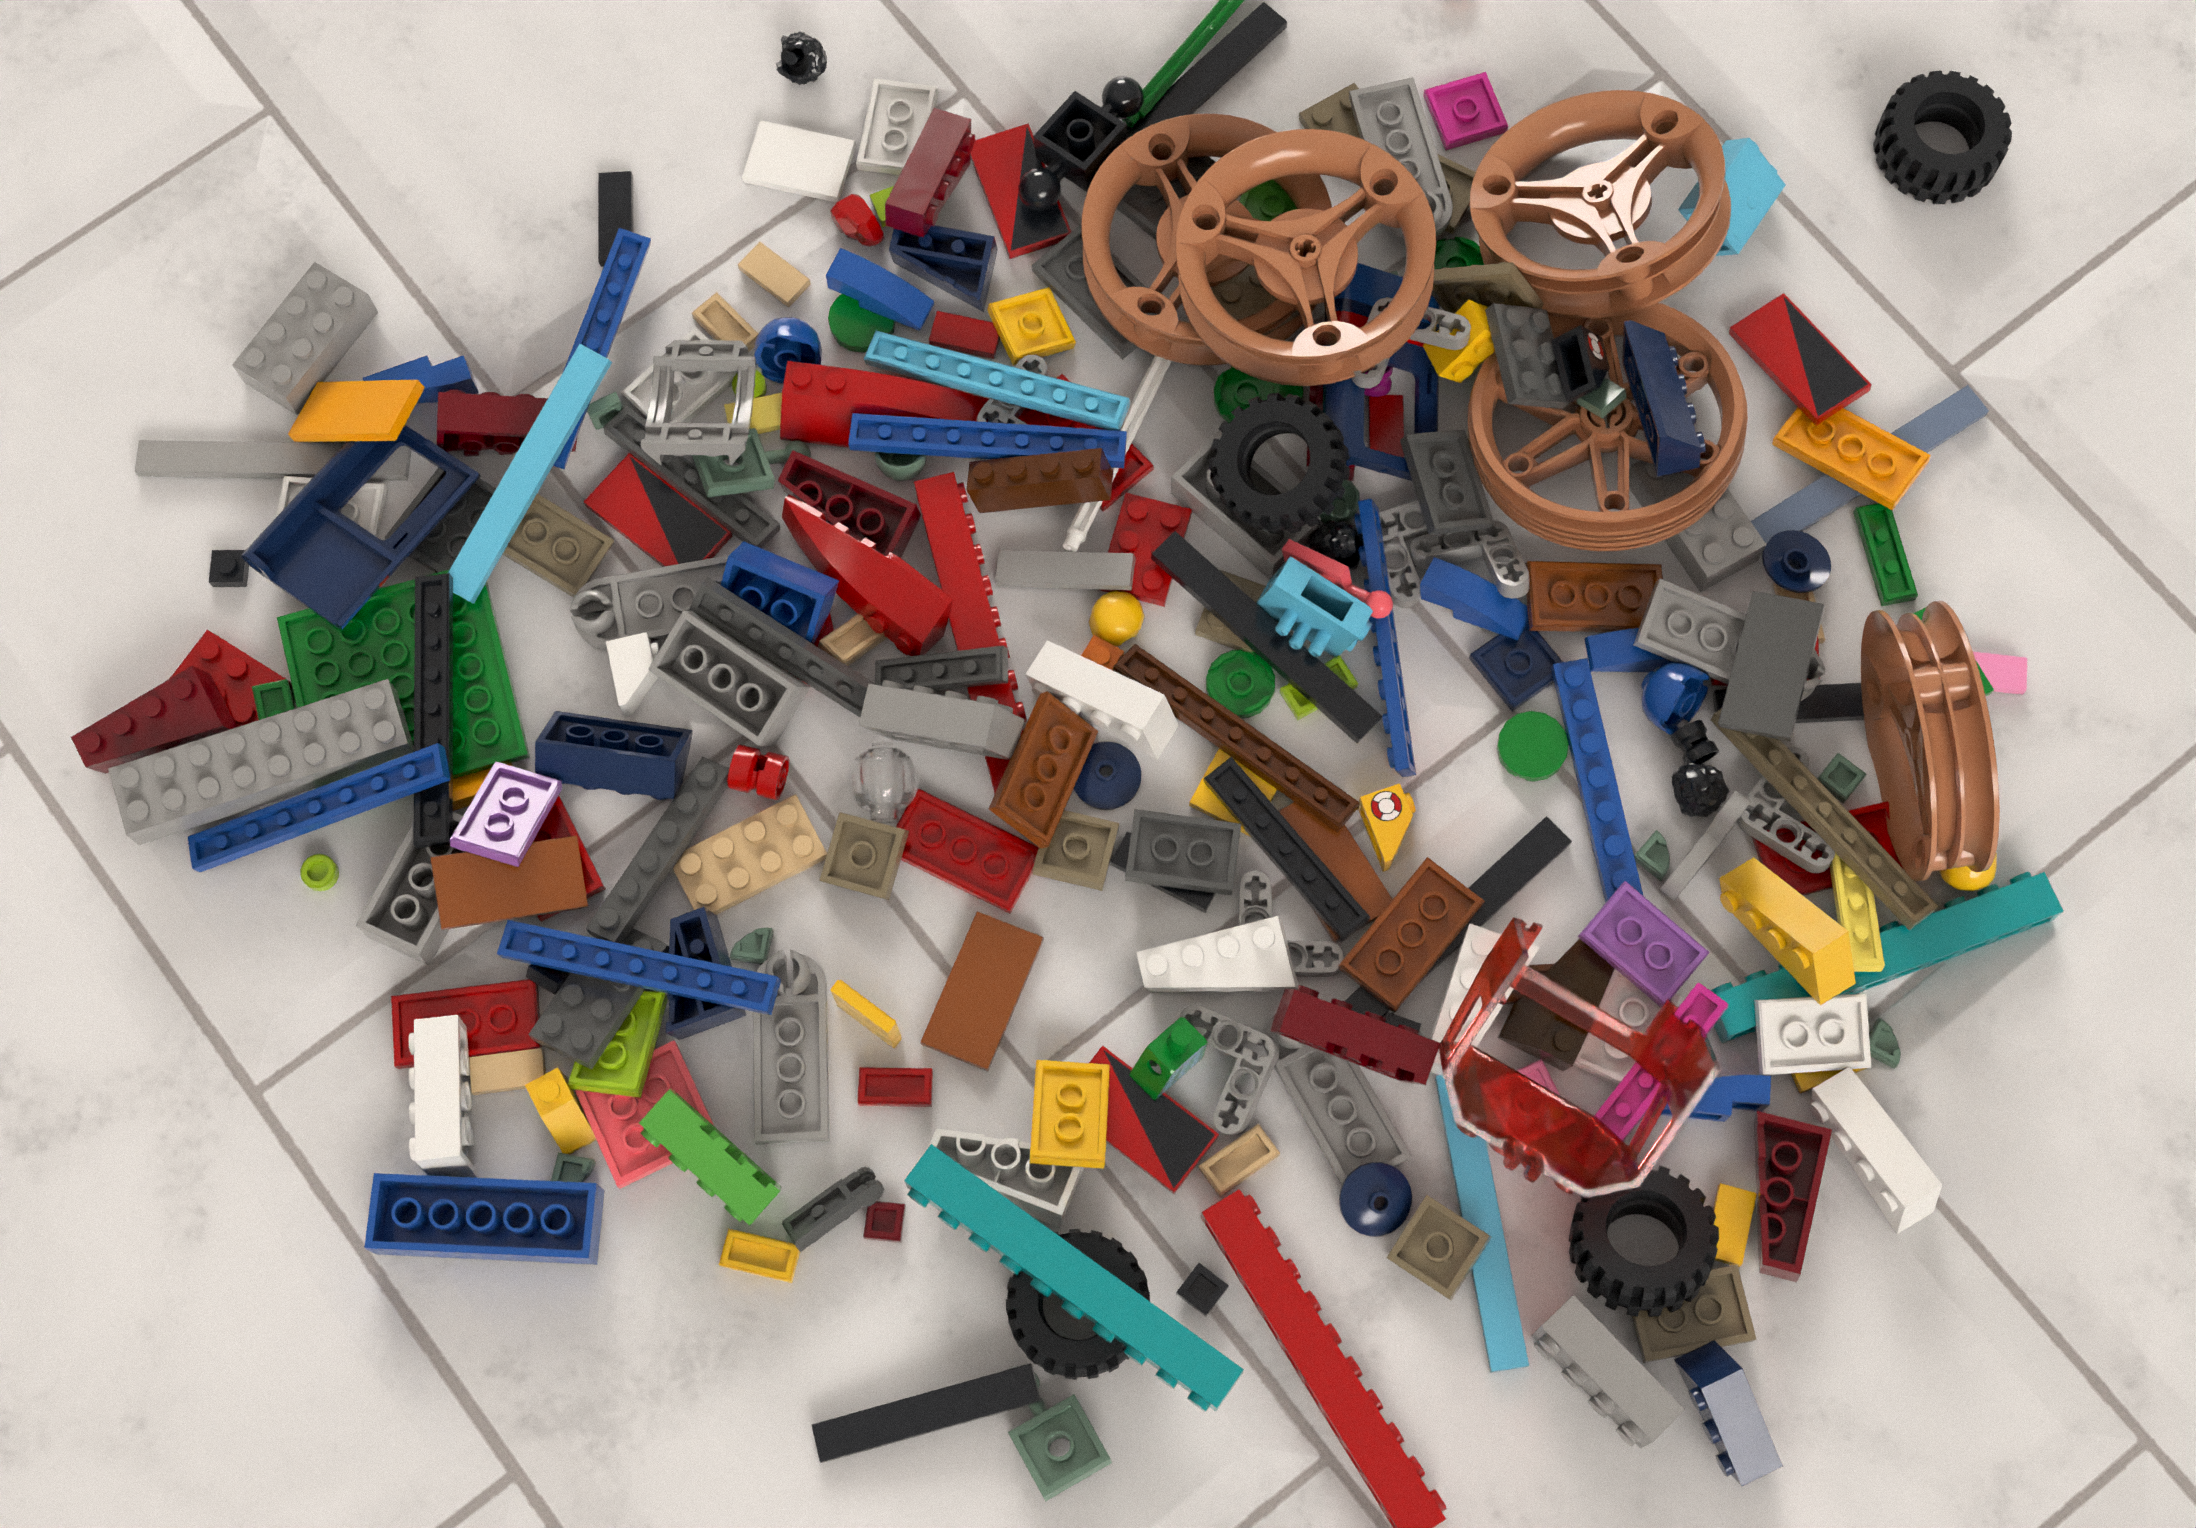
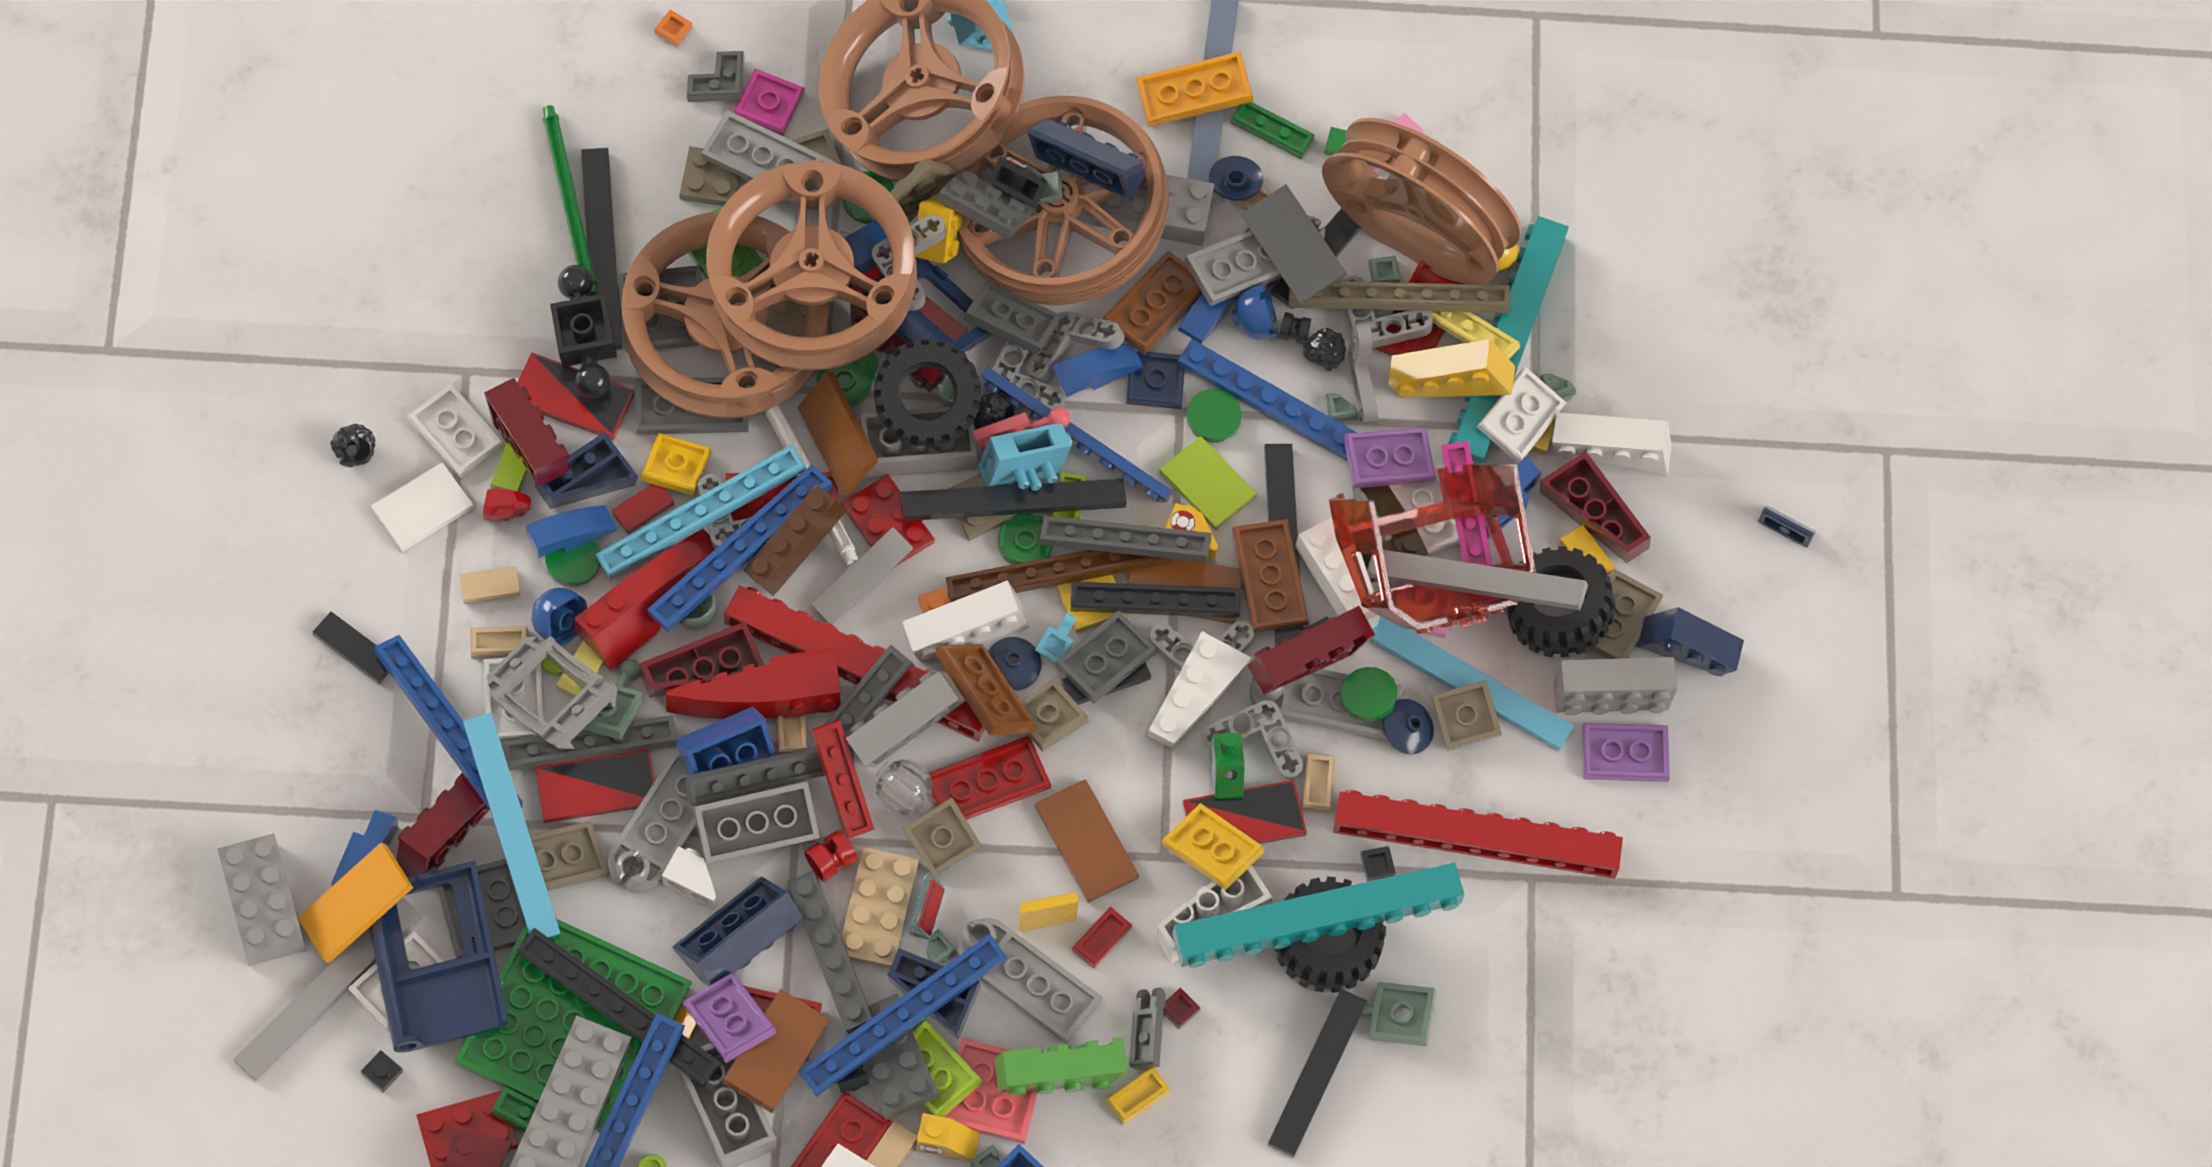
camera: 60 degrees left, 5 degrees down
(784, 900) = (927, 907): none -> slope
(836, 717) = (842, 779): none -> red plate
(1116, 617) = (918, 574): yellow hair -> none
(1159, 792) = (1055, 641): none -> medium azure plate
(1183, 430) = (837, 433): none -> dark orange tile
(1317, 769) = (1125, 538): none -> dark grey plate
(1369, 1132) = (1369, 694): none -> green tile
(1442, 59) = (724, 84): none -> dark grey tile
(1457, 798) = (1207, 482): none -> lime tile
(1551, 1443) = (1625, 752): none -> medium lavender tile
(1578, 1140) = (1482, 580): none -> light grey tile
(1800, 359) = (1111, 65): tile -> none
(1959, 1405) = (1786, 526): none -> dark blue slope

